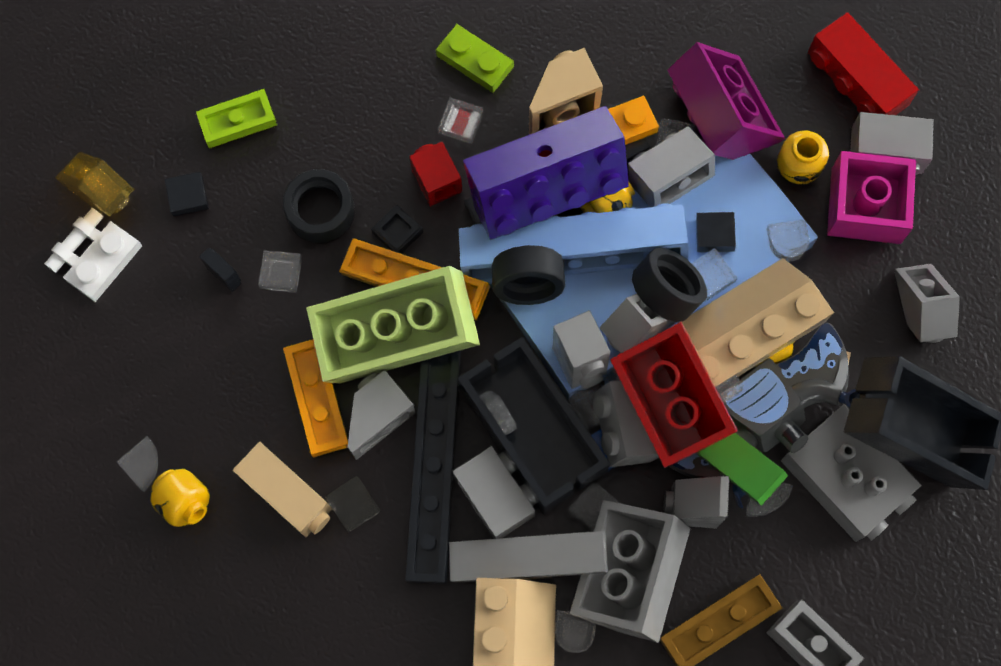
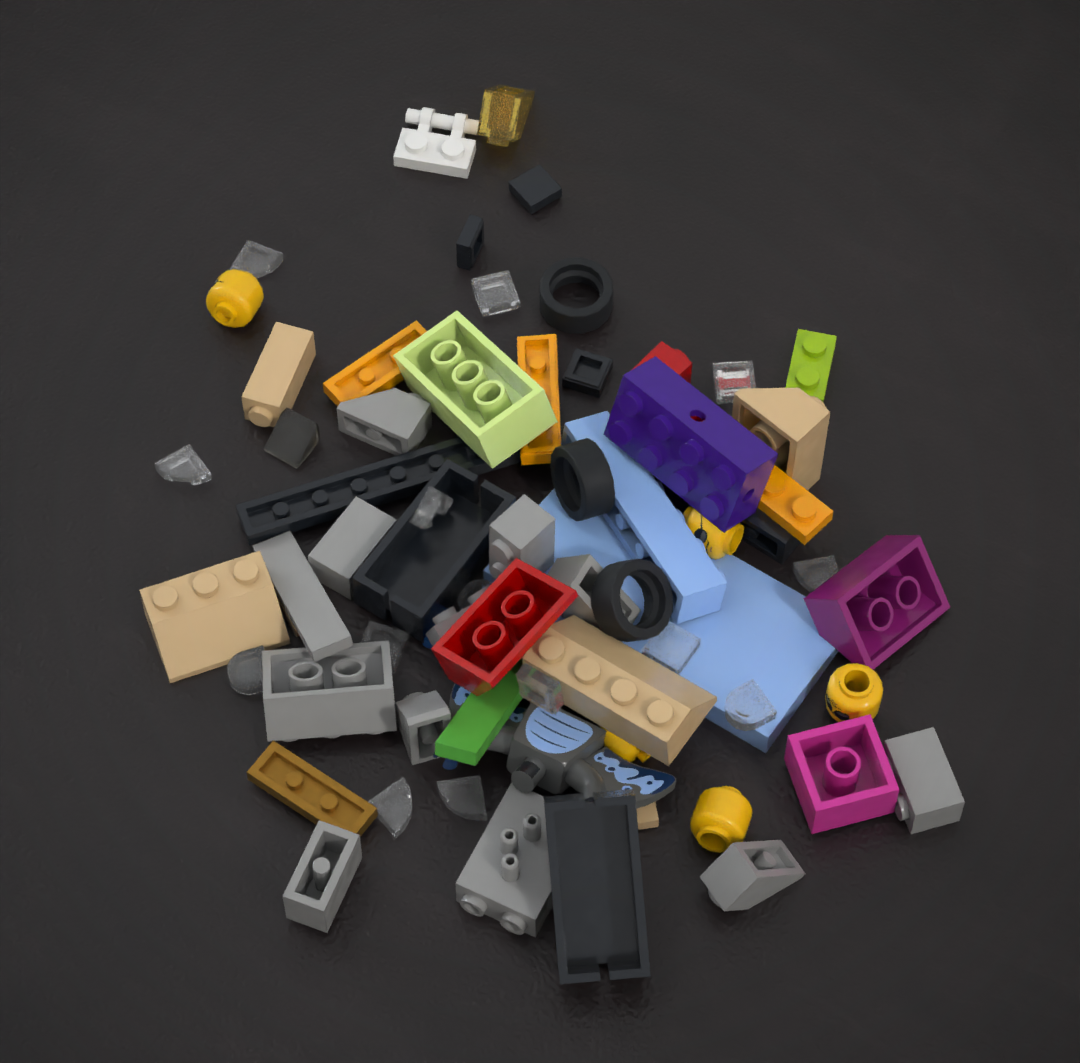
camera: 65 degrees right, 15 degrees down
(236, 118) = (632, 195): lime plate -> none
(337, 611) = (183, 466): none -> clear tile
(671, 168) = (772, 575): light grey brick -> none
(715, 231) = (721, 637): black tile -> none
(753, 558) = (394, 806): none -> clear tile
(861, 68) = (993, 722): red brick -> none
(871, 304) = (720, 818): none -> yellow head

